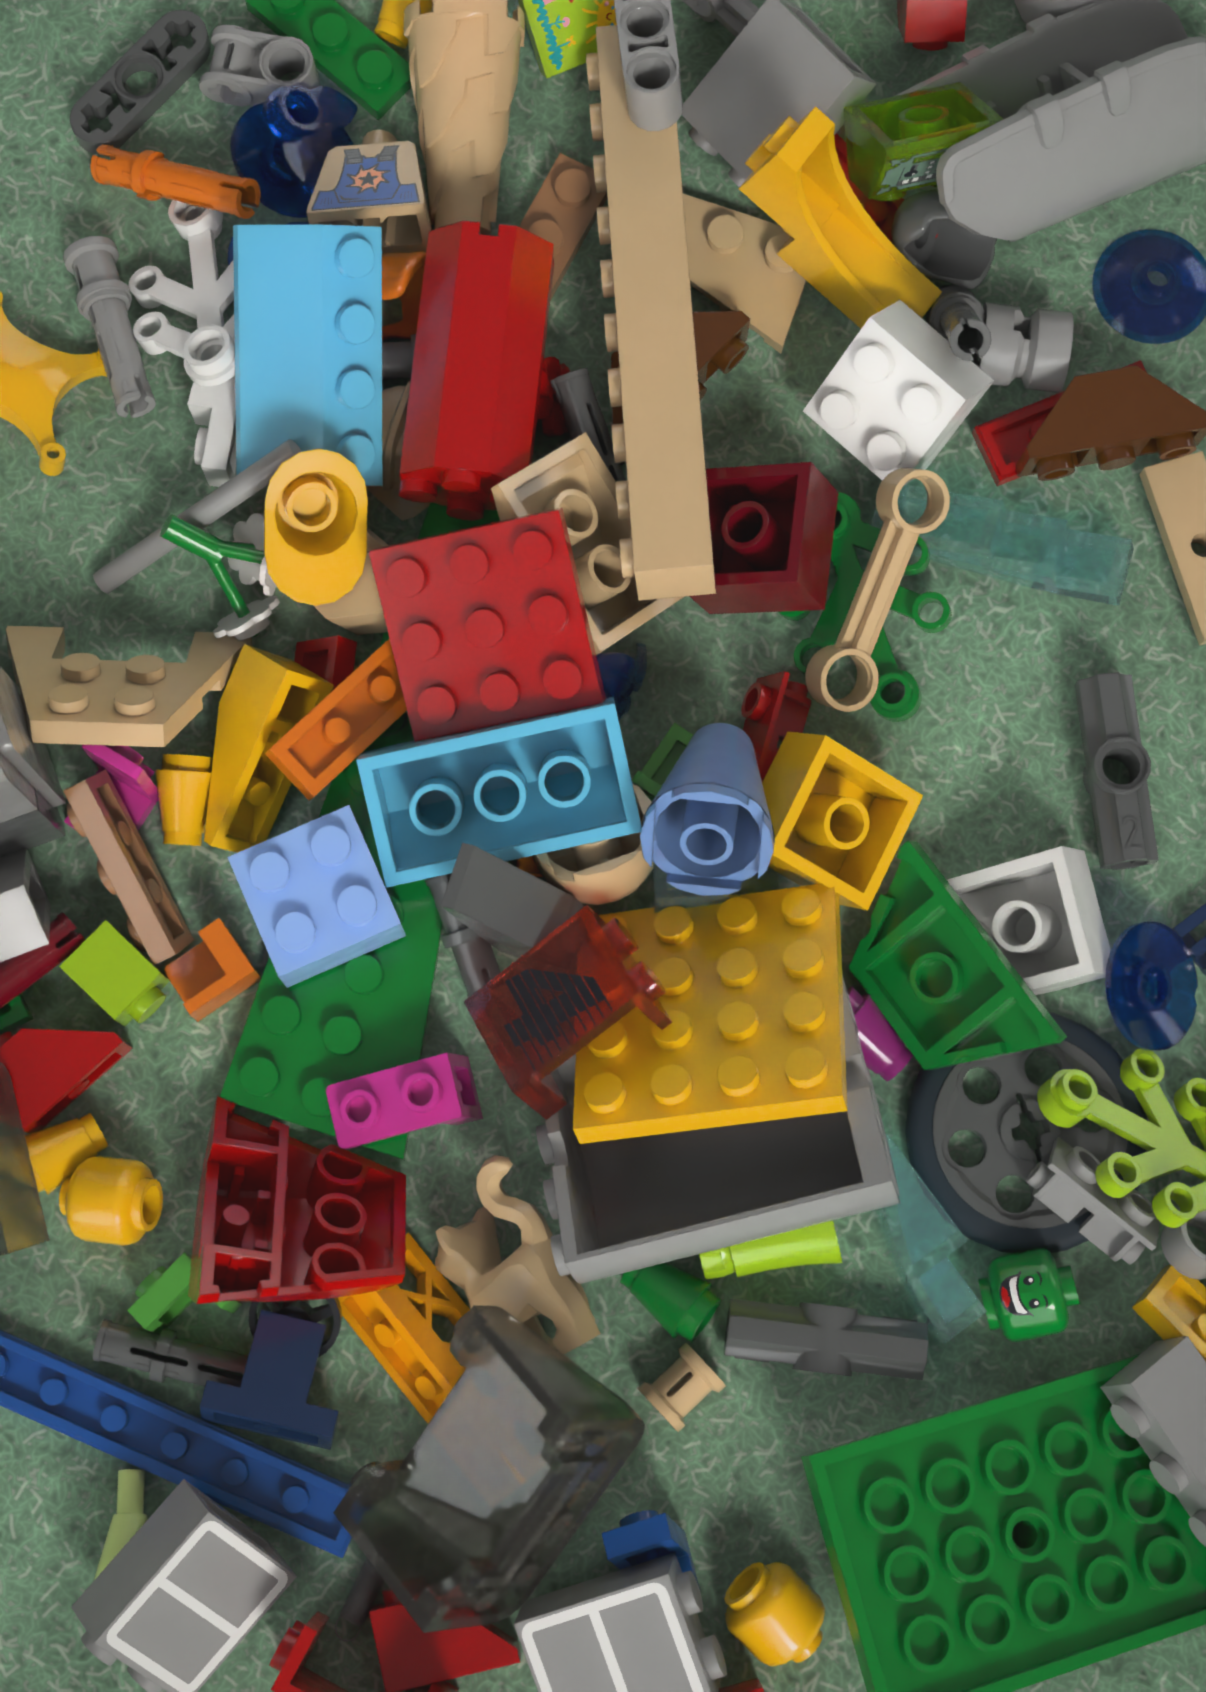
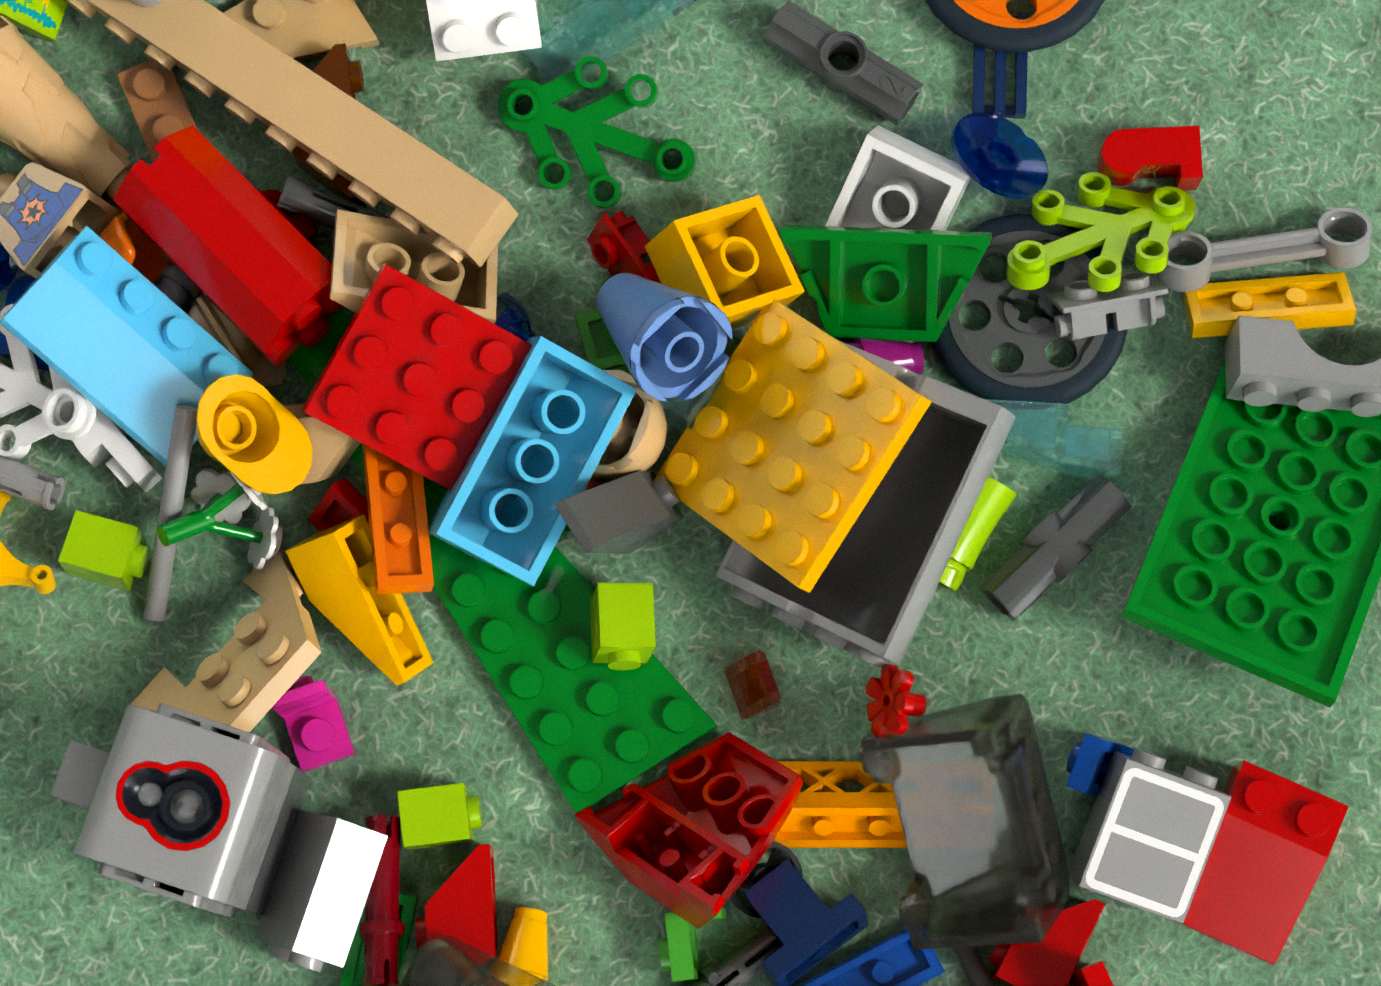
camera: 45 degrees left, 0 degrees up
(111, 1200) = (587, 938): yellow head -> none
(122, 490) = (104, 551): none -> lime brick
(127, 867) = (372, 750): medium nougat plate -> none
(183, 797) = (353, 677): yellow cone -> none
(211, 971) = (486, 751): orange panel -> none
(316, 896) = (500, 636): light blue brick -> none
(404, 1100) = (679, 693): dark pink bracket -> none
(420, 998) = (622, 624): none -> lime brick
(463, 1161) = (753, 685): none -> clear red slope
(470, 950) = (601, 566): dark grey pin -> none
(524, 1281) = (821, 732): tan animal -> none
(534, 1306) = (892, 701): none -> red plant
(561, 1001) = (707, 531): clear red panel -> none
(674, 1298) = (951, 622): green cone -> none
(681, 1387) = (1002, 647): tan bush -> none
(769, 538) = (508, 149): dark red brick -> none
(774, 1613) = (1202, 720): yellow head -> none
(877, 588) = (597, 111): tan piece -> none
(1028, 1295) = (1131, 395): green head -> none

